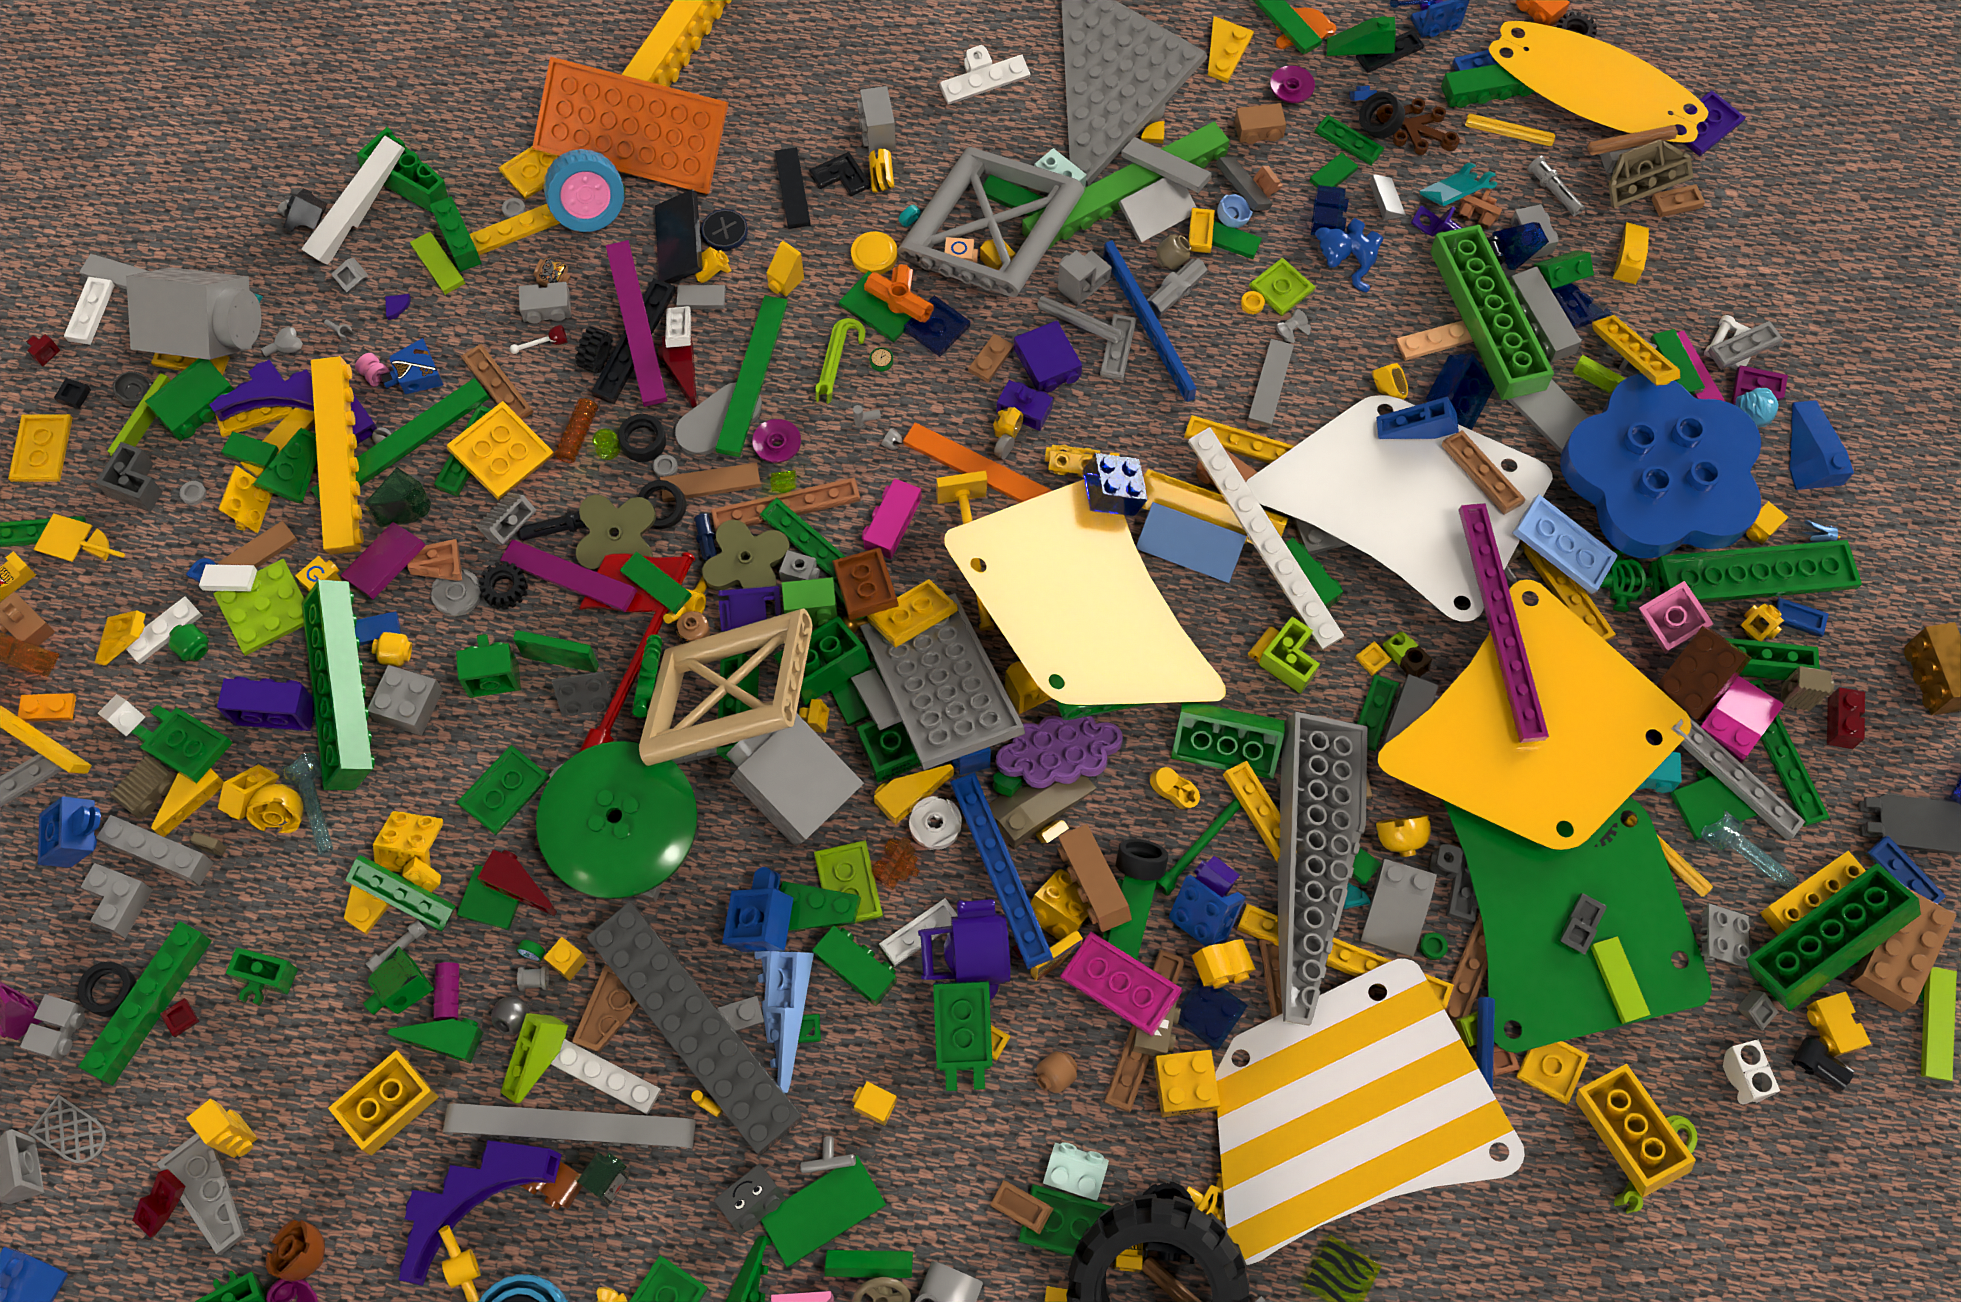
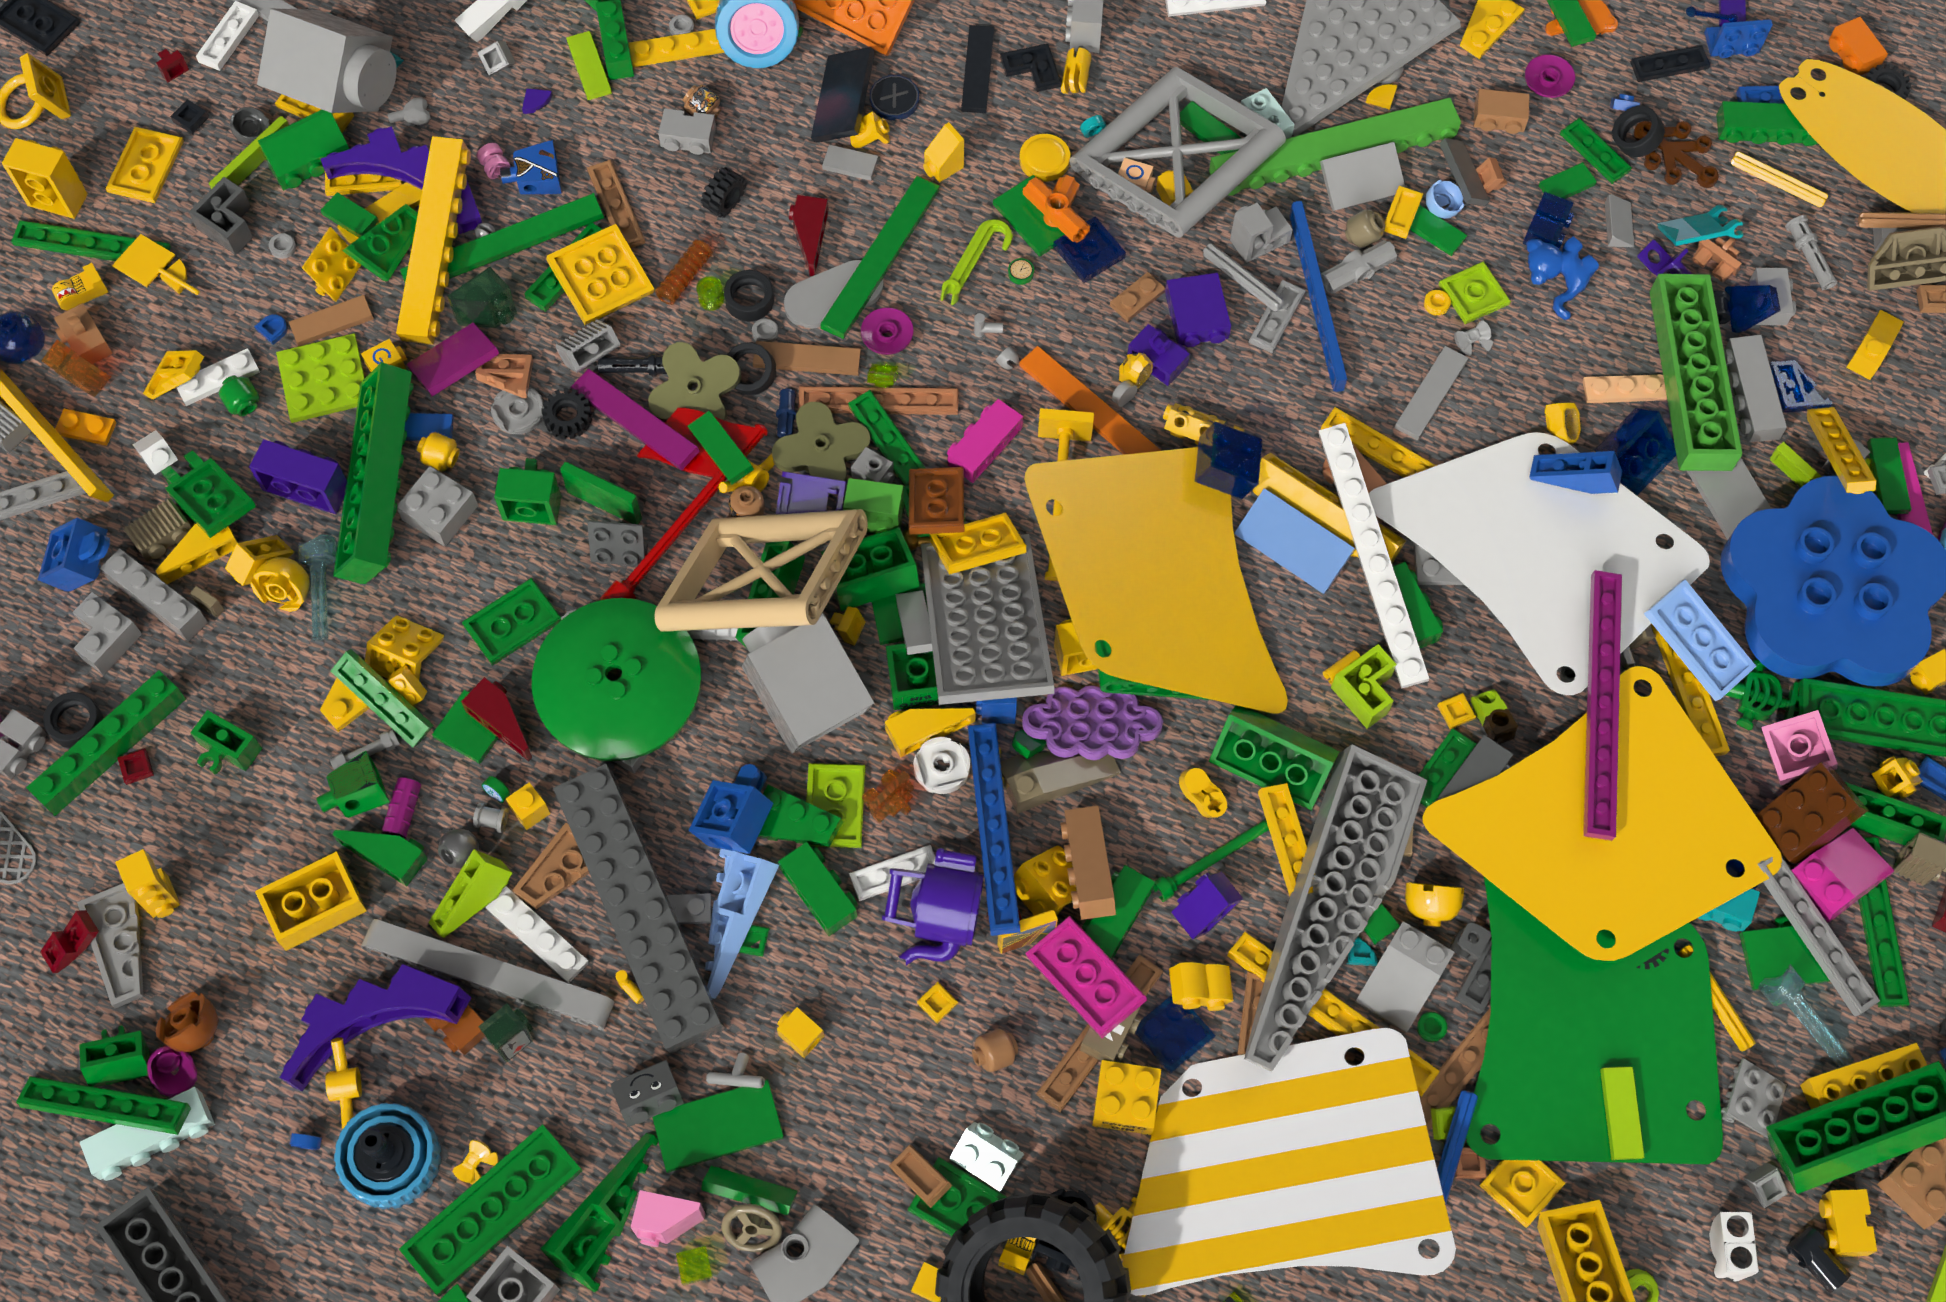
camera: 15 degrees right, 0 degrees up
(228, 577) = (294, 339): white tile -> none
(339, 329) = (471, 111): light grey hand -> none
(556, 336) = (689, 169): hinge -> none
(620, 362) = (767, 192): black plate -> none
(636, 323) = (774, 175): magenta tile -> none
(647, 676) = (685, 540): green piece -> none
(678, 327) = (817, 188): white tile -> none
(963, 1030) = (909, 982): green tile -> none
(1051, 831) = (1060, 804): tile -> none
(1141, 859) = (1145, 856): black tyre -> none
(1166, 164) = (1383, 133): light grey tile -> none
(1204, 912) = (1195, 928): blue bracket -> none
(1368, 37) = (1649, 43): green slope -> none
(1483, 472) = (1633, 541): medium nougat tile -> none
(1566, 268) = (1793, 344): green brick -> none
(1582, 923) = (1598, 1043): dark grey slope -> none

